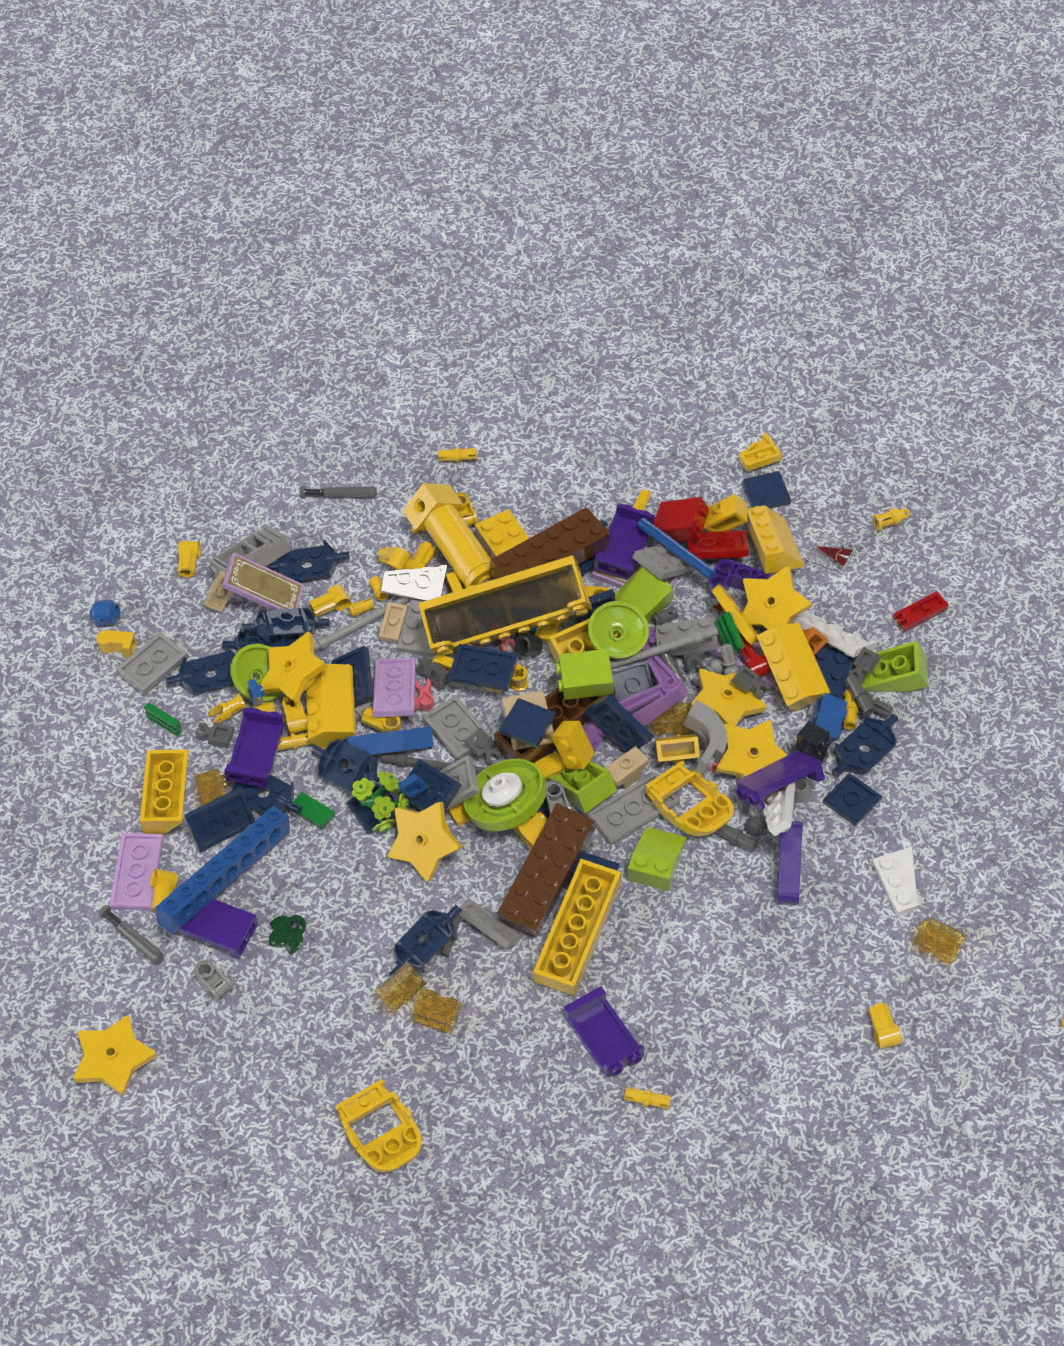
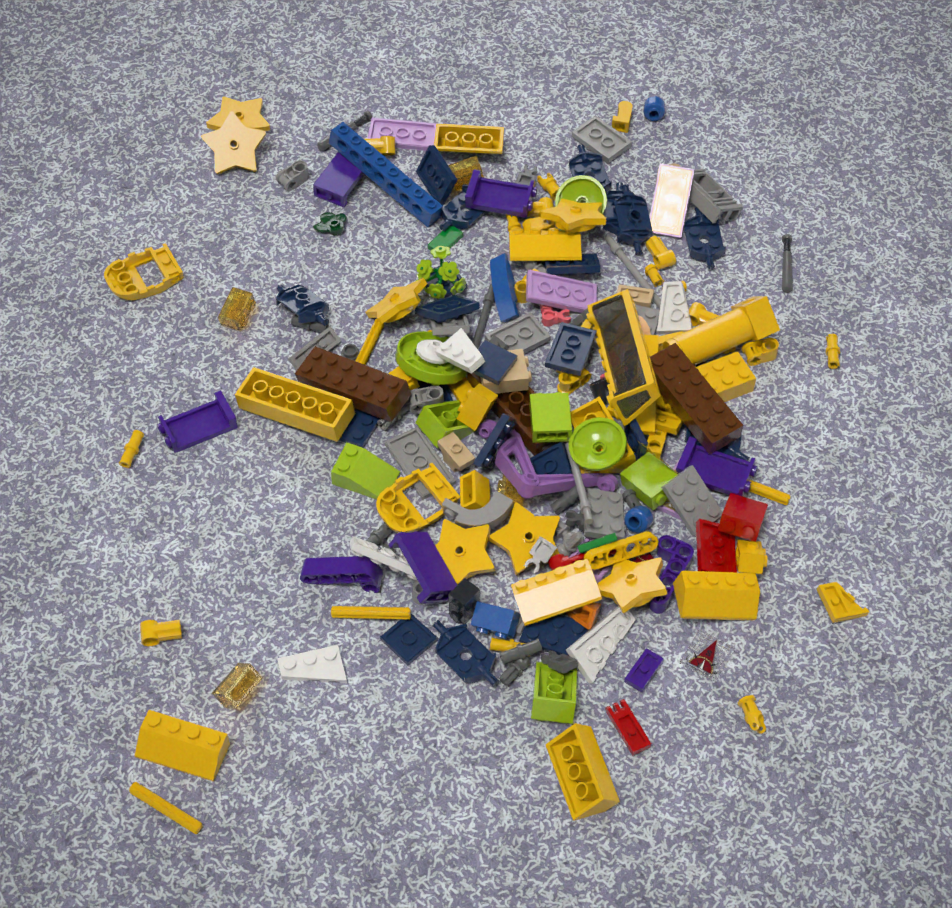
camera: 90 degrees right, 0 degrees up
(163, 719) = (542, 145): green tile -> none
(168, 1047) = (243, 153): none -> yellow plate
(188, 554) = (718, 160): yellow piece -> none
(256, 692) = (554, 192): blue plate -> none
(360, 764) = (477, 256): dark blue plate -> none
(394, 557) = (702, 294): yellow piece -> none
(400, 987) = (260, 284): clear yellow brick -> none
(412, 786) = (447, 292): blue plate -> none
(476, 873) = (370, 342): none -> yellow axle
(488, 890) = (350, 351): none -> dark grey plate
(517, 750) = (460, 352): none -> white wing
(676, 548) = (703, 507): blue axle -> none
(689, 607) = (638, 519): none -> blue head
(767, 490) = (791, 605): dark blue tile -> none
(830, 832) = (371, 612): none -> yellow axle
(857, 601) = (643, 670): none -> dark purple plate
(976, 644) = (582, 772): none -> yellow slope
(1014, 984) = (181, 745): none -> yellow slope

